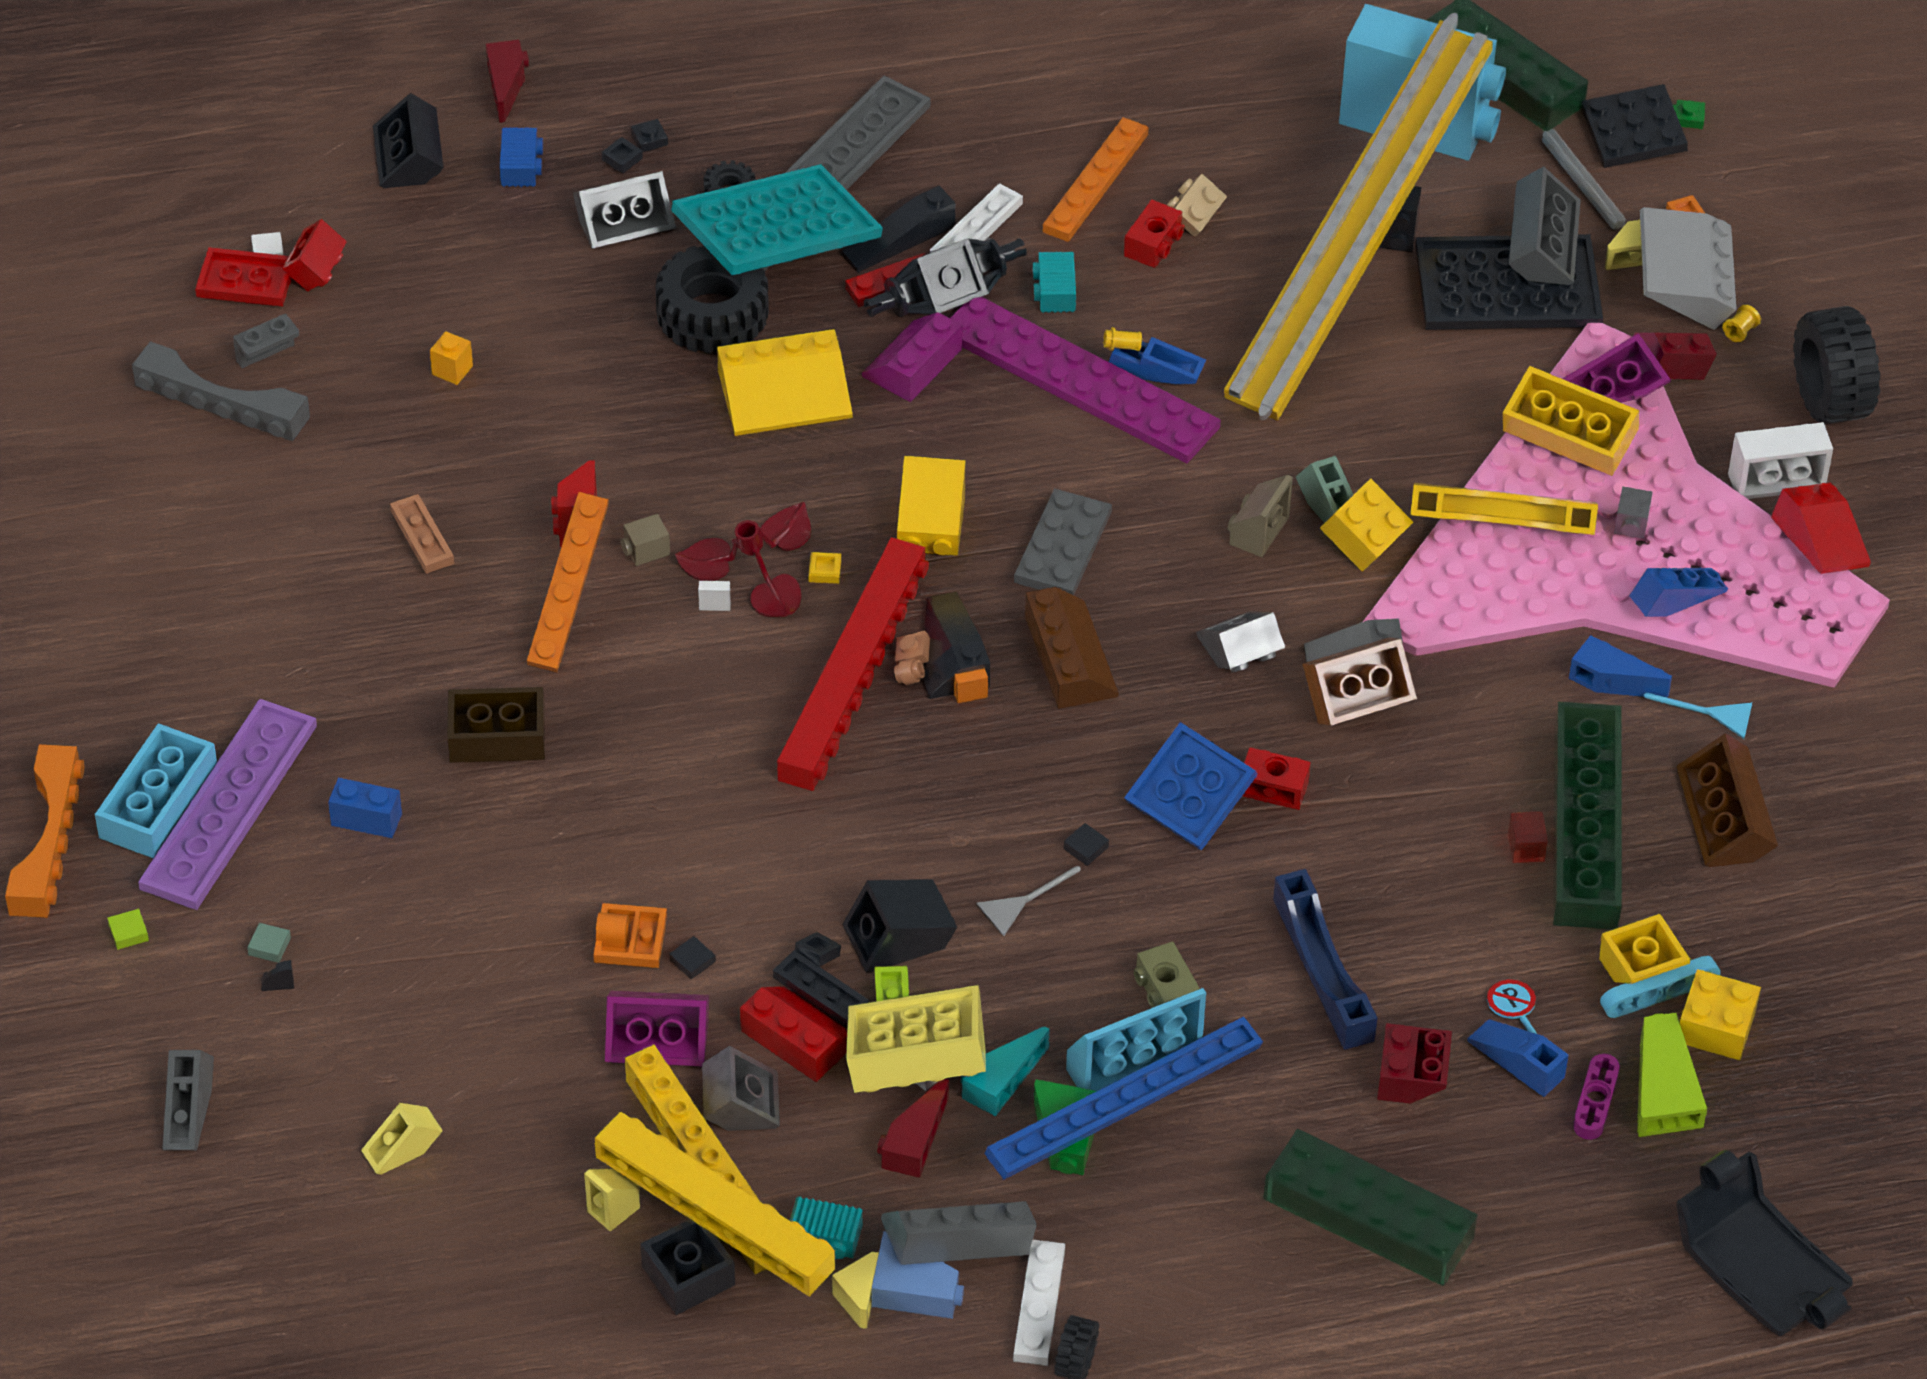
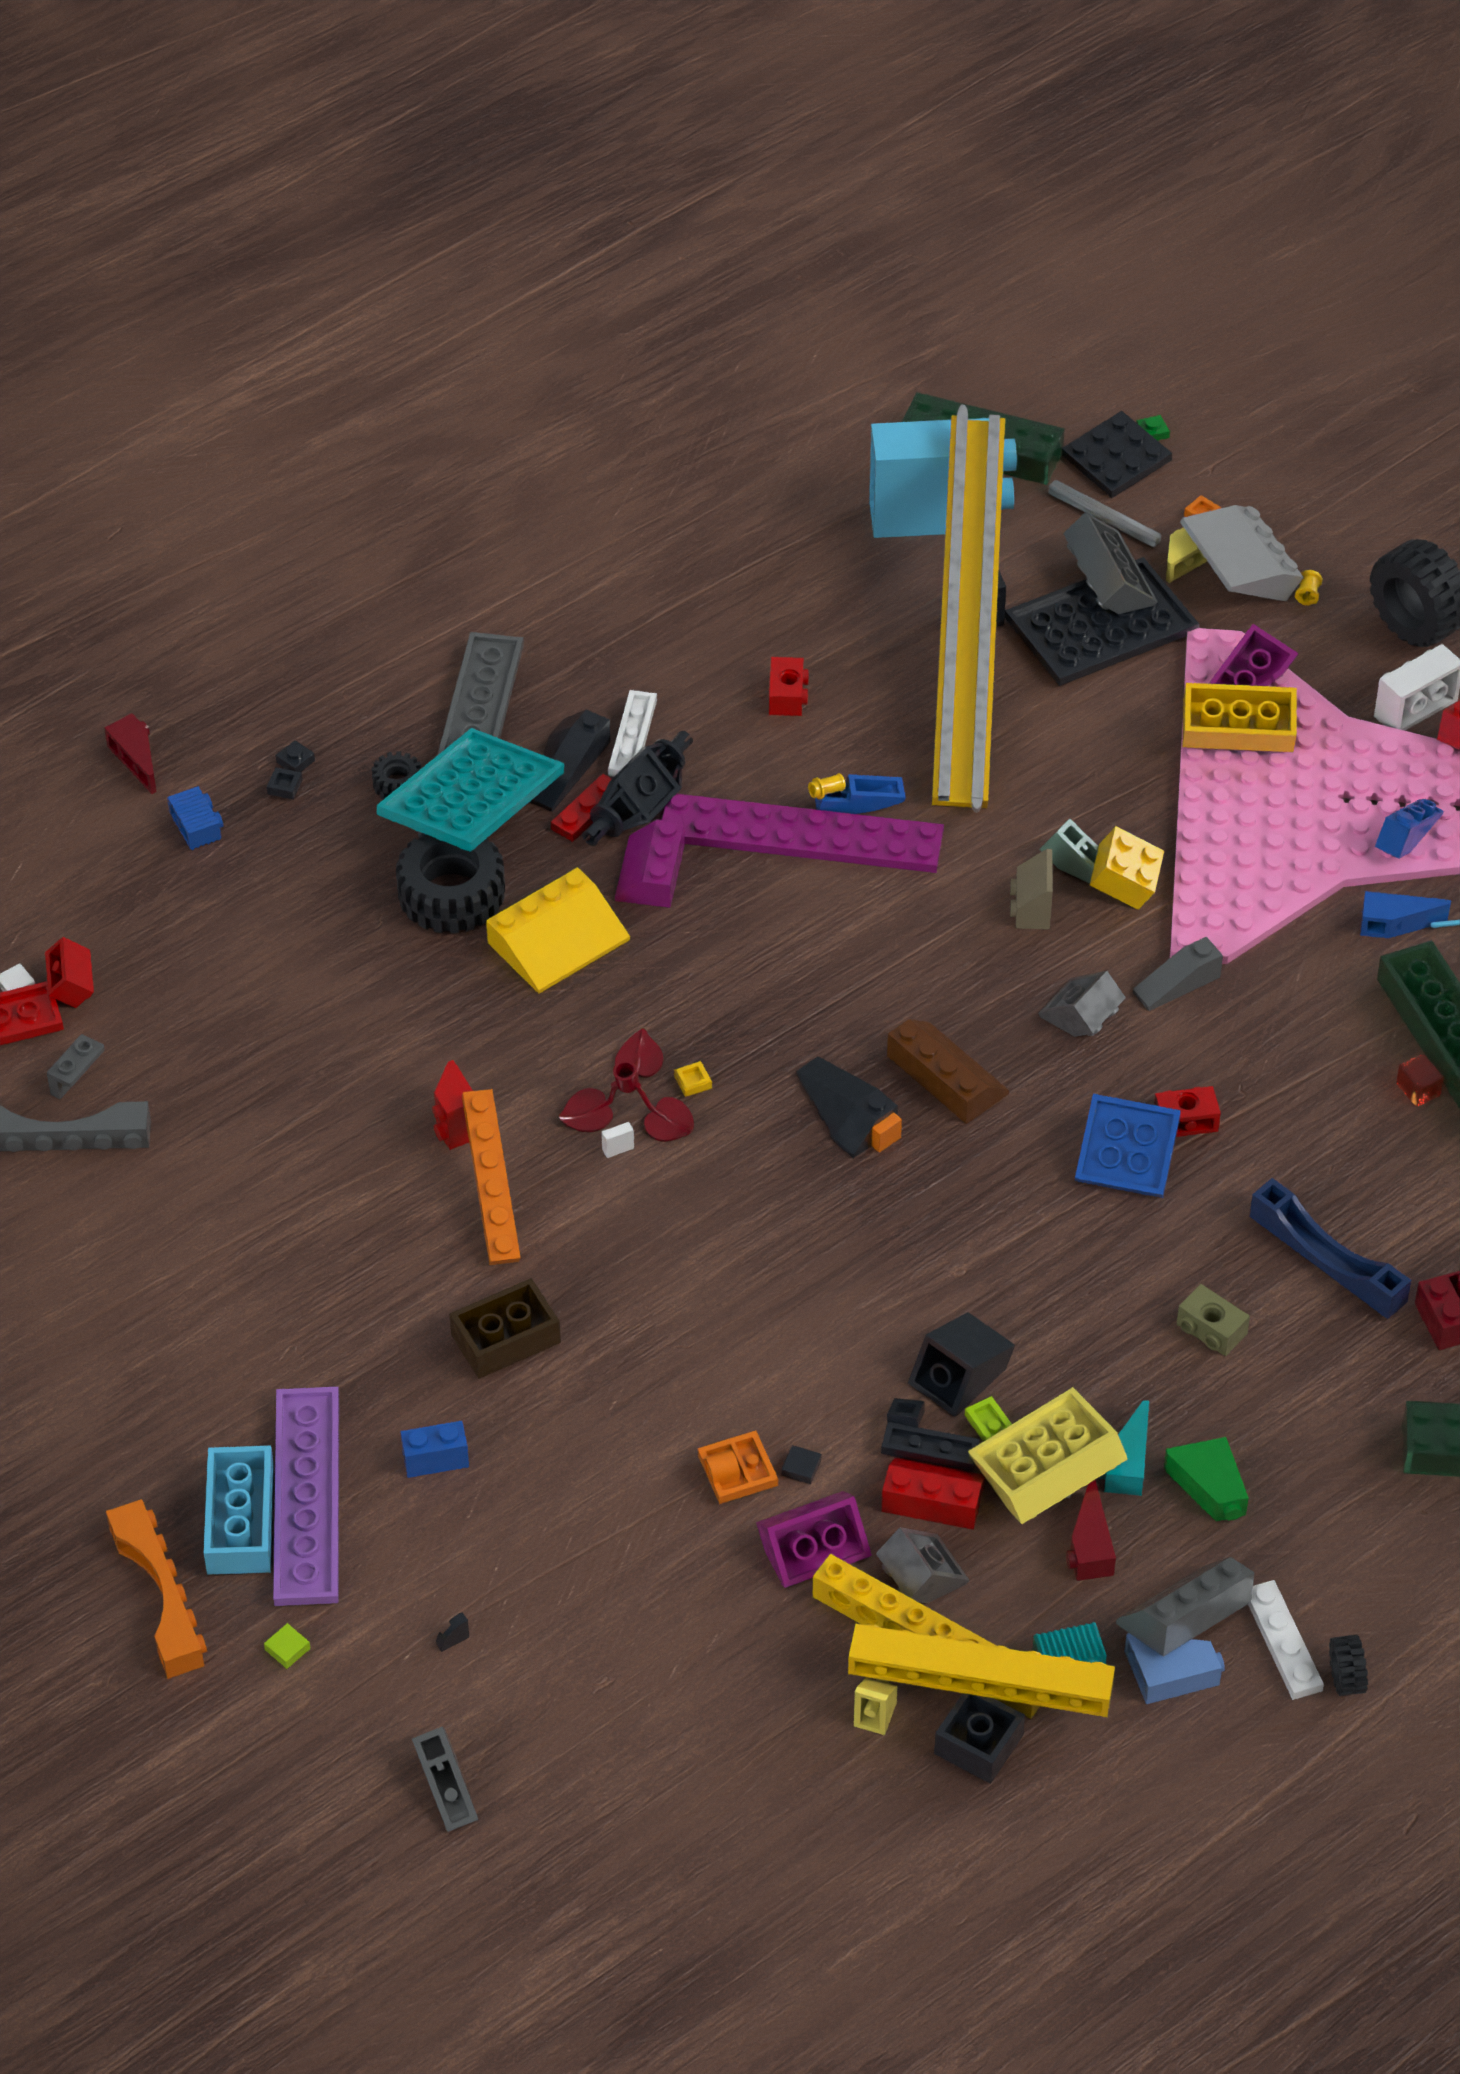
camera: 25 degrees left, 0 degrees up
(269, 942) = (422, 1605): sand green tile -> none
(401, 1137) = (657, 1730): light yellow slope -> none
(408, 144) = (86, 842): black slope -> none
(422, 533) = (324, 1184): nougat plate -> none
(451, 358) = (251, 1018): light orange brick -> none
(624, 209) = (318, 830): dark grey slope -> none
(646, 540) = (527, 1113): dark tan brick -> none
(852, 665) = (774, 1154): red brick -> none
(854, 1288) = (1131, 1694): light yellow slope -> none
(910, 654) = (819, 1127): nougat plate -> none
(932, 504) = (756, 989): yellow slope -> none
(1005, 911) = (1036, 1315): light grey piece -> none
(1056, 281) = (731, 757): teal brick -> none
(1063, 542) = (879, 979): dark grey plate -> none
(1086, 844) = (1066, 1230): black tile -> none
(1095, 179) = (704, 658): orange plate -> none
(1122, 1098) = (1249, 1435): blue plate -> none
(1136, 1041) = (1228, 1383): medium azure slope -> none
(1198, 202) = (807, 643): tan bracket -> none
(1359, 681) = (1209, 1002): brick -> none
(1504, 508) = (1232, 810): yellow arch -> none
(1633, 512) = (1333, 775): flat silver brick -> none
(1682, 354) = (1287, 625): dark red slope -> none

